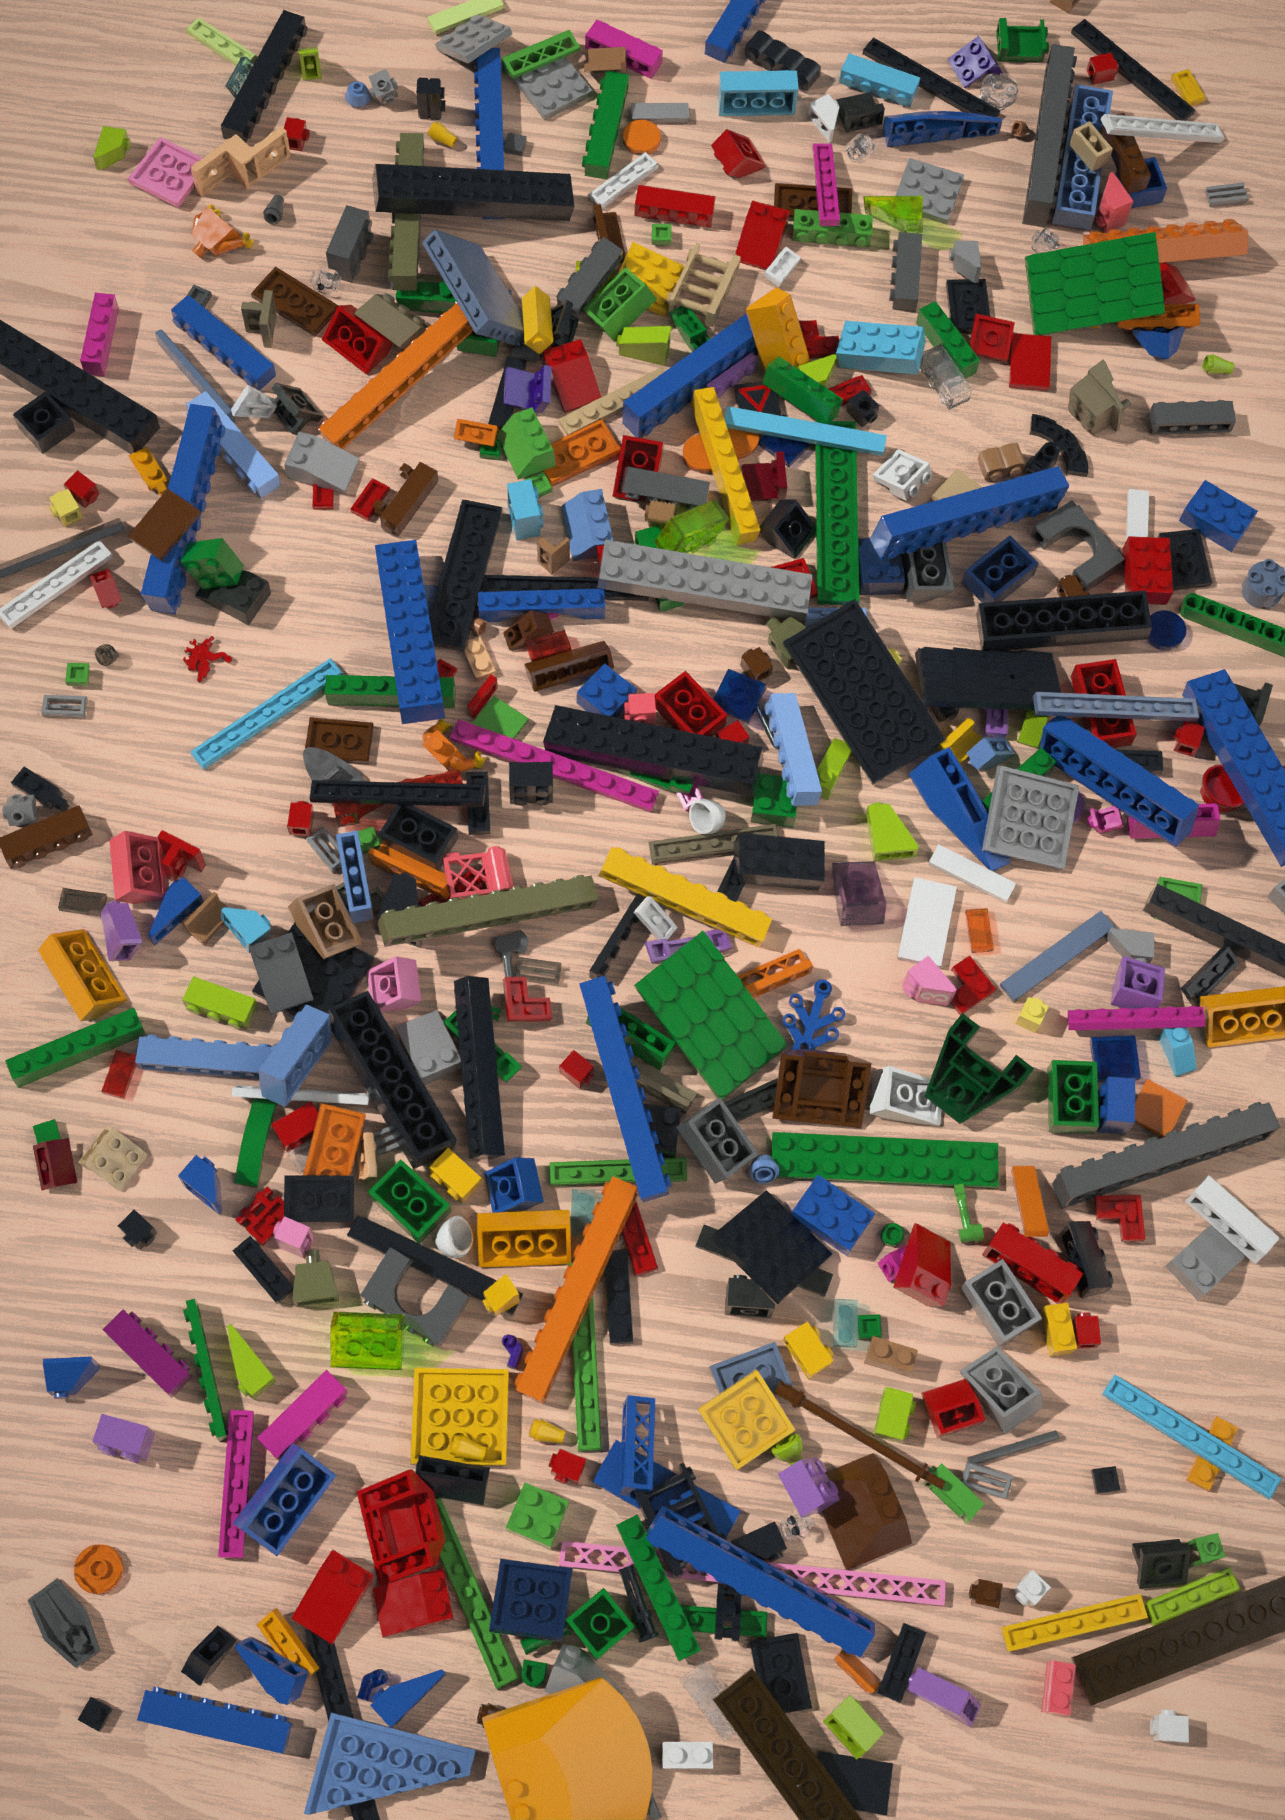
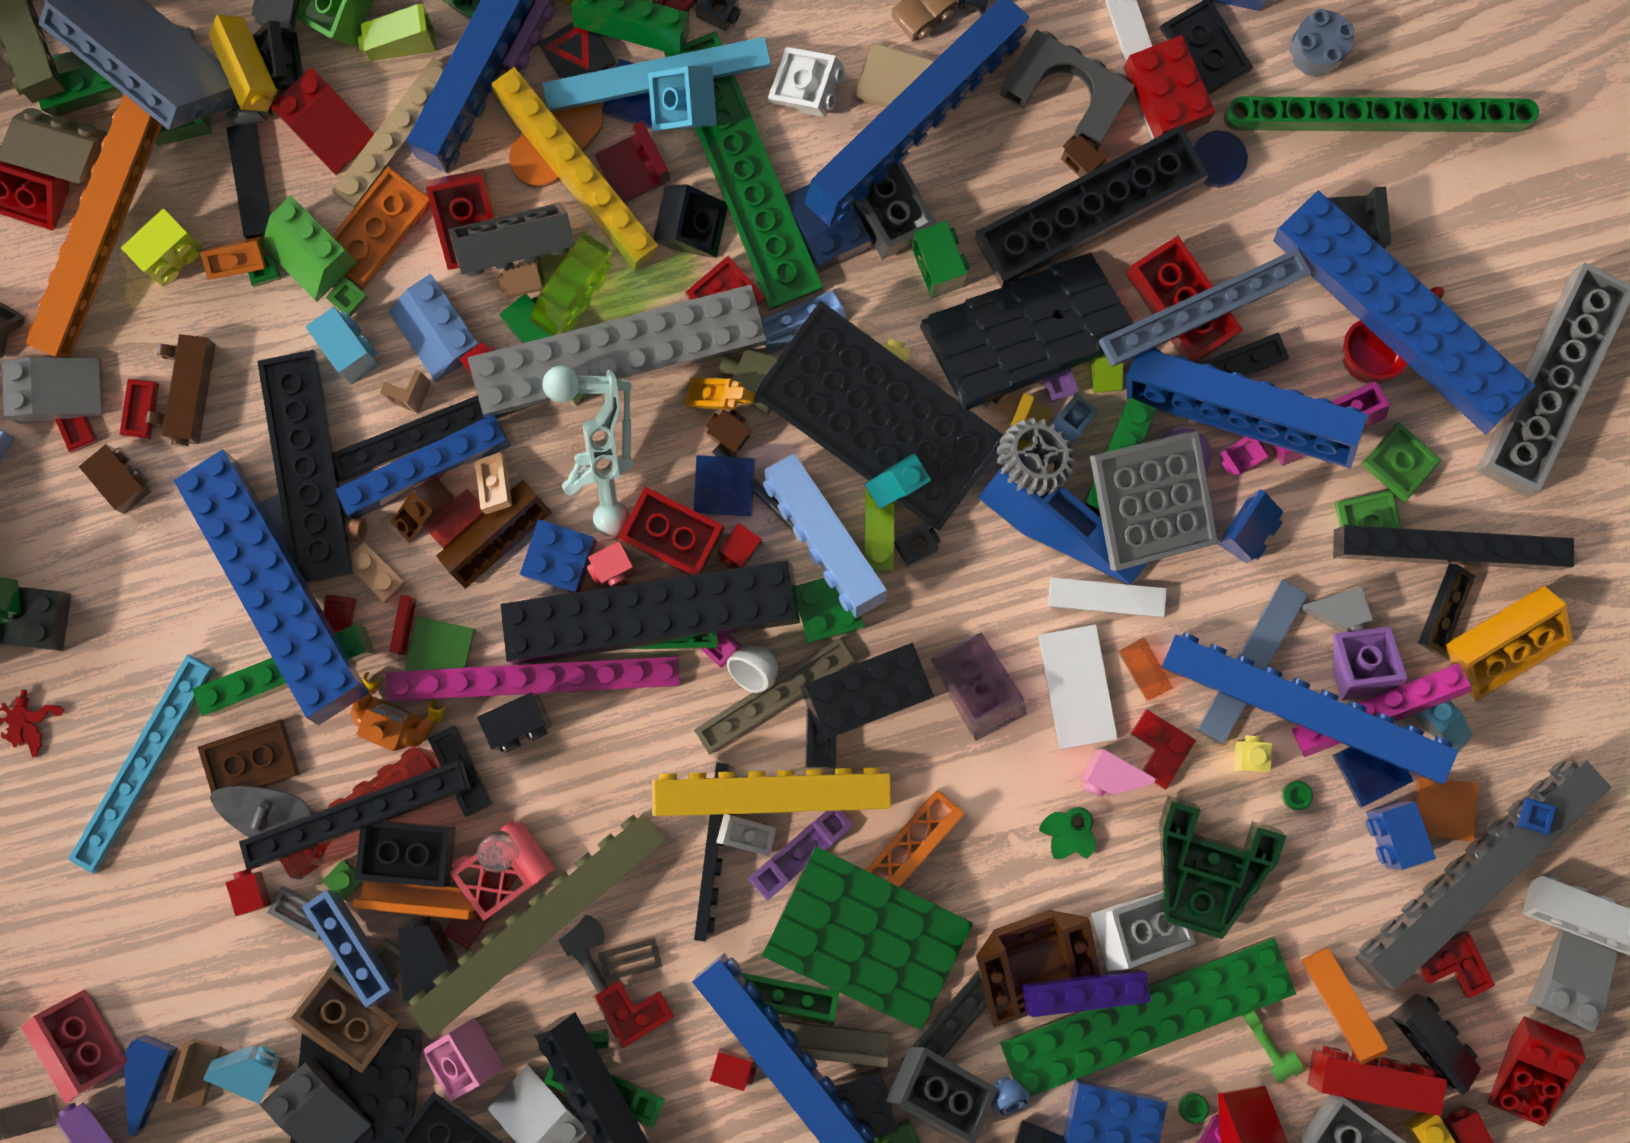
camera: 20 degrees left, 15 degrees up
(178, 856) = (118, 1014): red bracket -> none
(335, 532) = (115, 478): none -> reddish brown brick
(434, 407) = (162, 248): none -> neon yellow brick
(483, 854) = (498, 851): none -> clear head
(527, 389) = (272, 167): dark purple bracket -> none
(583, 633) = (493, 483): none -> light nougat plate
(661, 578) = (562, 385): none -> light aqua piece
(759, 636) = (717, 394): none -> light orange hinge
(812, 1022) = (990, 881): blue plant -> none
(816, 448) = (682, 98): none -> medium azure slope
(847, 792) = (911, 556): none -> black brick
(848, 1114) = (1086, 993): none -> dark purple brick
(858, 735) = (897, 481): none -> teal arch
(878, 1016) = (1067, 837): none -> green plate
(888, 834) = (983, 591): lime slope -> none
(946, 612) = (939, 259): none -> green brick
(959, 753) = (1030, 465): none -> light grey gear
(1000, 571) = (984, 171): dark blue brick -> none
(1052, 1053) = (1297, 795): none -> green tile
(1072, 1097) = (1343, 844): green brick -> none
(1085, 993) = (1309, 709): none -> blue brick
(1092, 864) = (1252, 526): none -> blue slope
(1151, 1312) = (1536, 1071): none -> red slope
(1188, 738) = (1304, 299): red brick -> none
(1215, 868) = (1401, 462): none -> bright green tile
(1218, 1122) = (1537, 816): none -> blue tile

